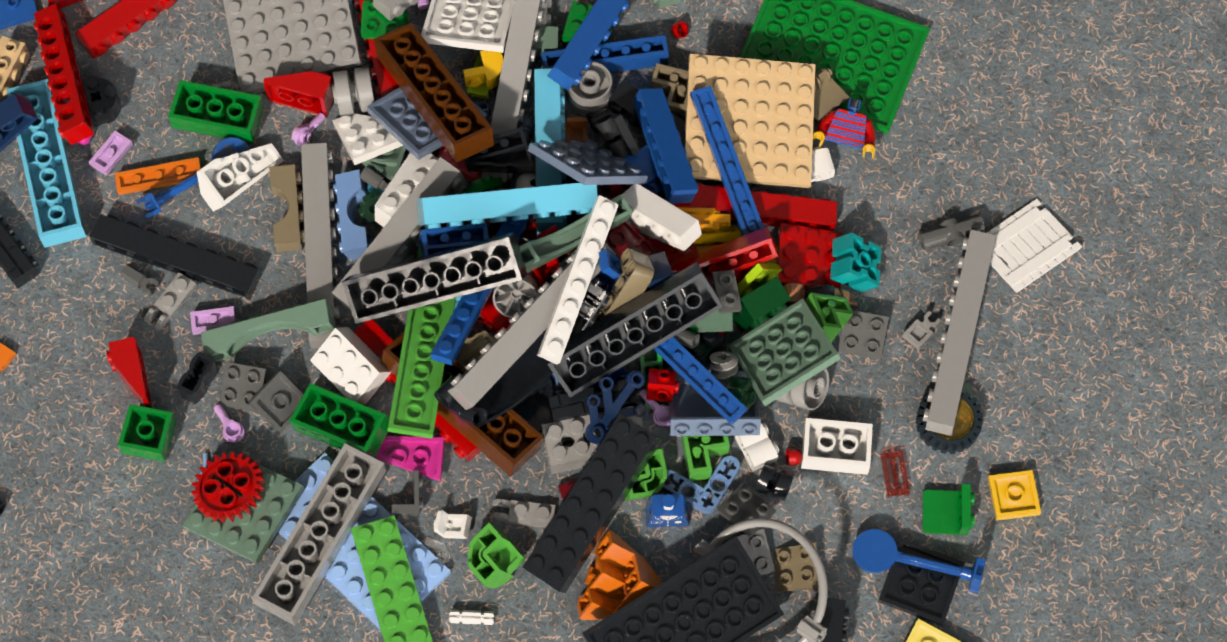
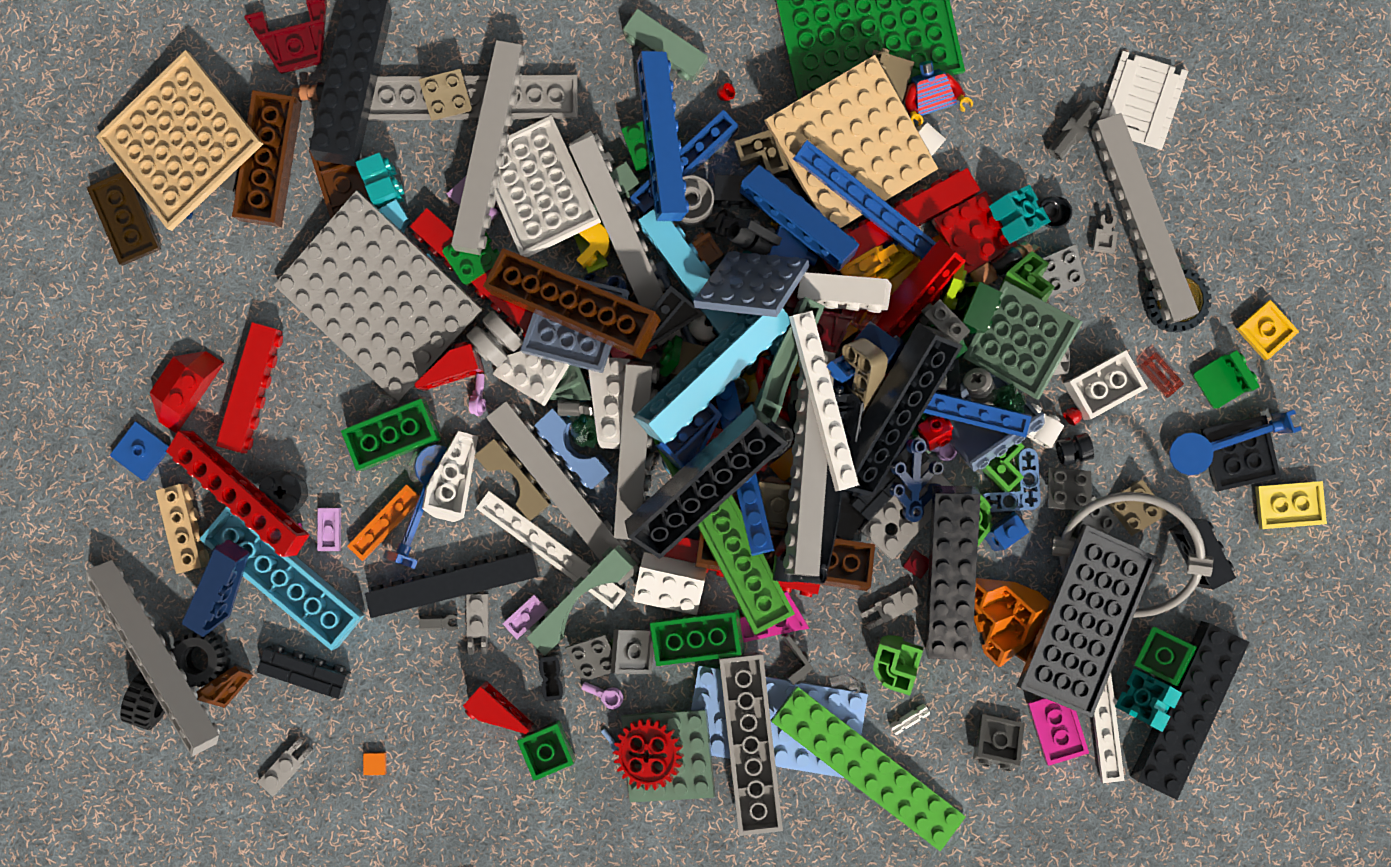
camera: 30 degrees left, 20 degrees up
(273, 278) = (546, 546): none -> white plate
(452, 525) = (844, 657): white bracket -> none
(891, 283) = (1058, 211): none -> black hair

